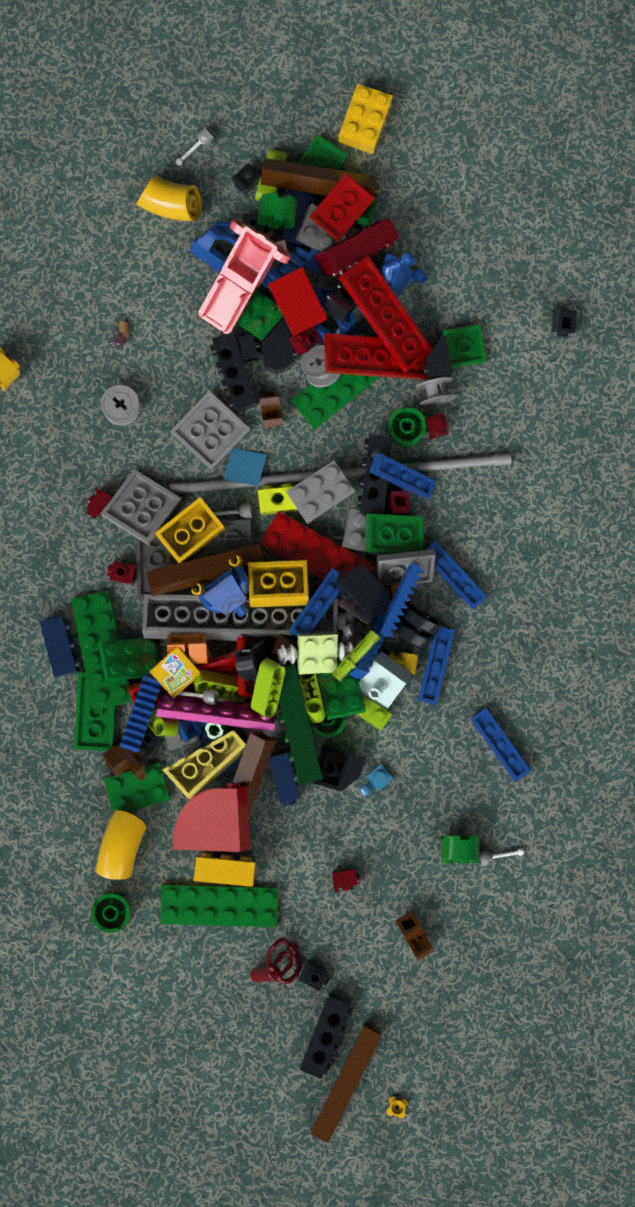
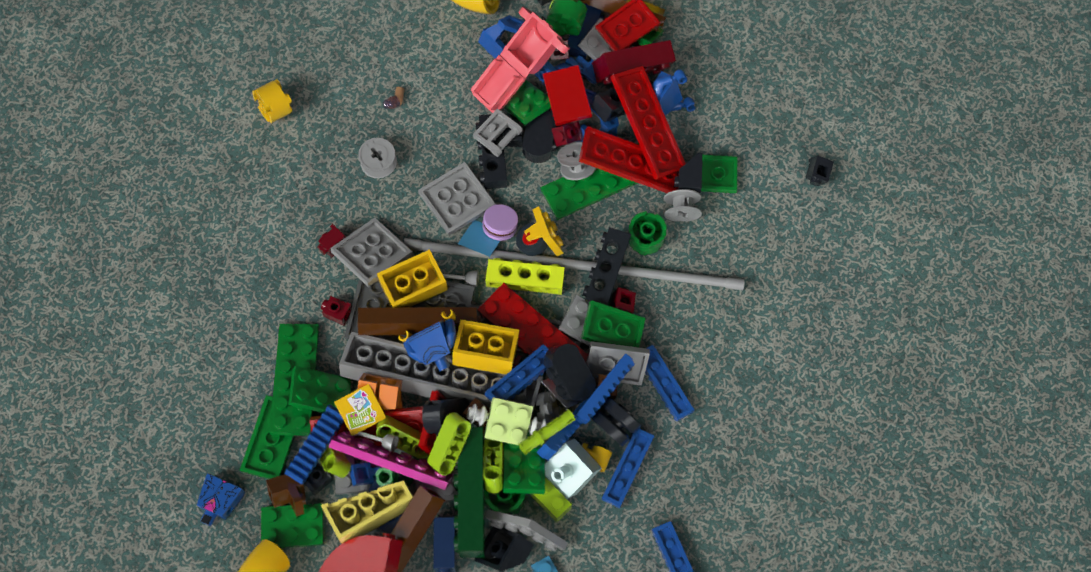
camera: 15 degrees right, 15 degrees down
(60, 646) = (255, 366): dark blue brick -> none
(61, 780) = (218, 499): none -> blue torso
(230, 351) = (492, 128): none -> light grey plate
(259, 447) = (500, 222): none -> lavender head
(270, 408) = (519, 190): reddish brown brick -> none
(299, 456) = (537, 236): none -> yellow plate
(320, 492) = (549, 273): light grey plate -> none
(356, 747) = (526, 527): none -> light grey plate
(402, 476) = (632, 273): blue gear -> none
(436, 426) = (676, 238): dark red brick -> none

